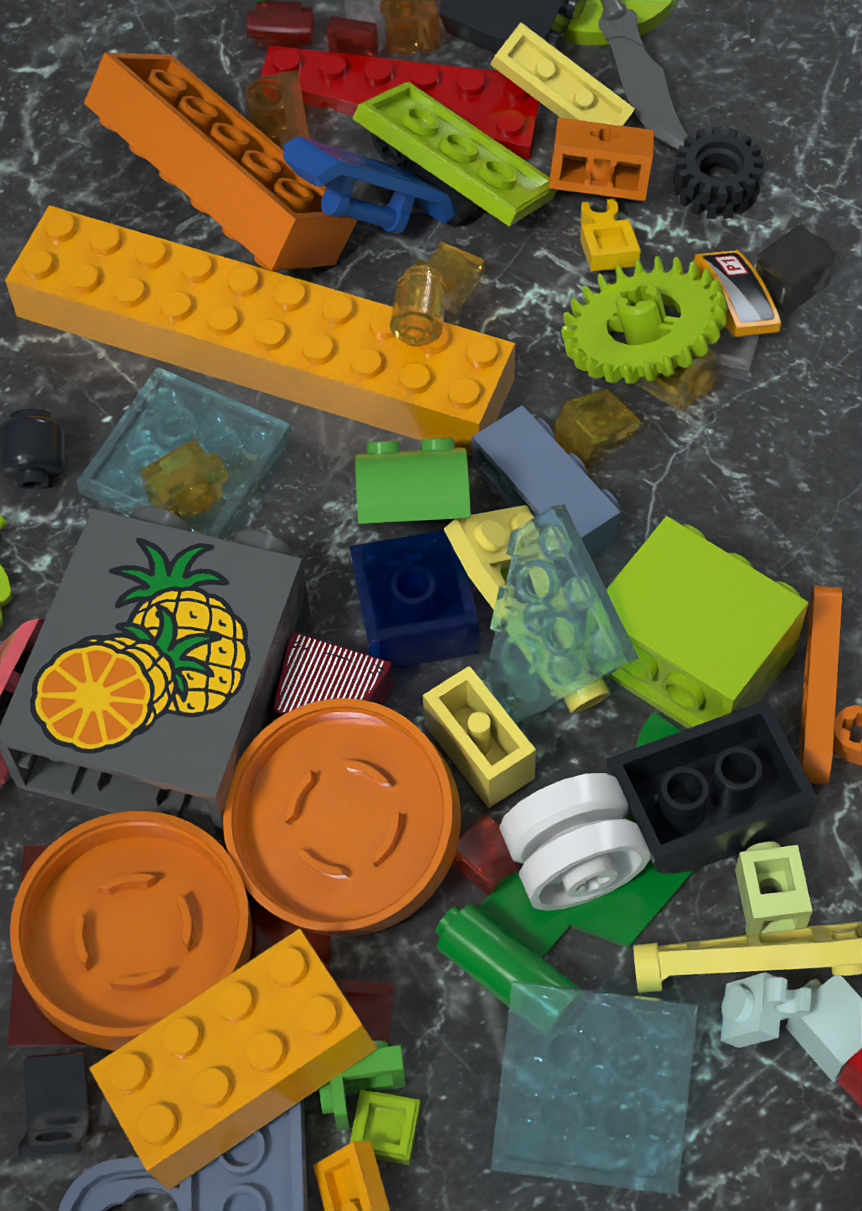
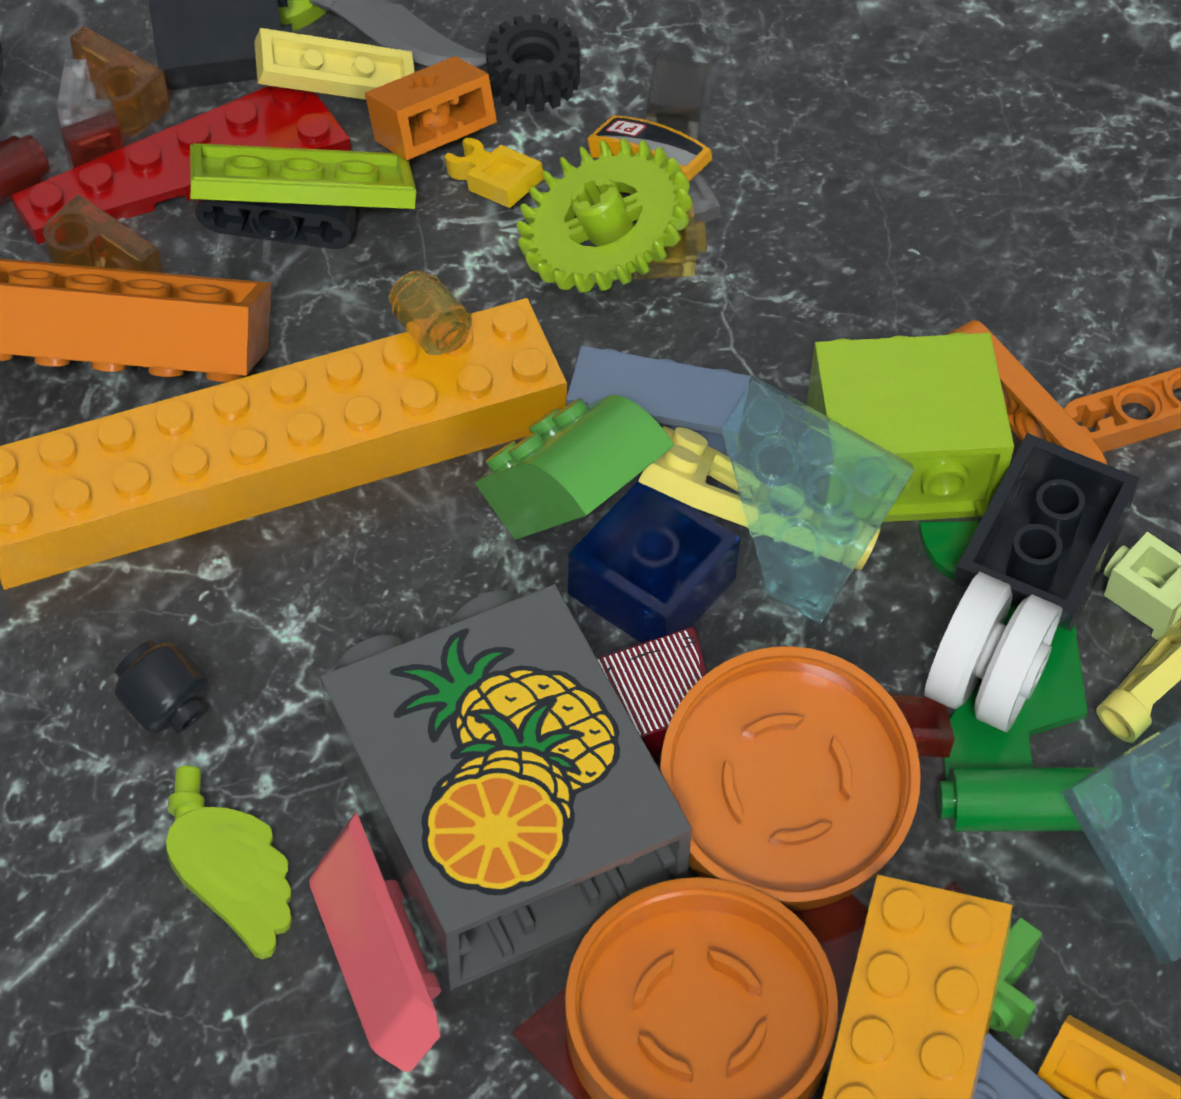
camera: 45 degrees left, 5 degrees down
(166, 417) = (309, 593): clear light blue plate -> none
(184, 480) = (355, 606): clear yellow brick -> none
(325, 163) = (248, 246): blue piece -> none
(388, 1124) = (1057, 995): lime tile -> none
(459, 270) = (374, 285): clear yellow bracket -> none
(479, 736) = (824, 621): light yellow brick -> none
(593, 423) = (644, 325): clear yellow bracket -> none

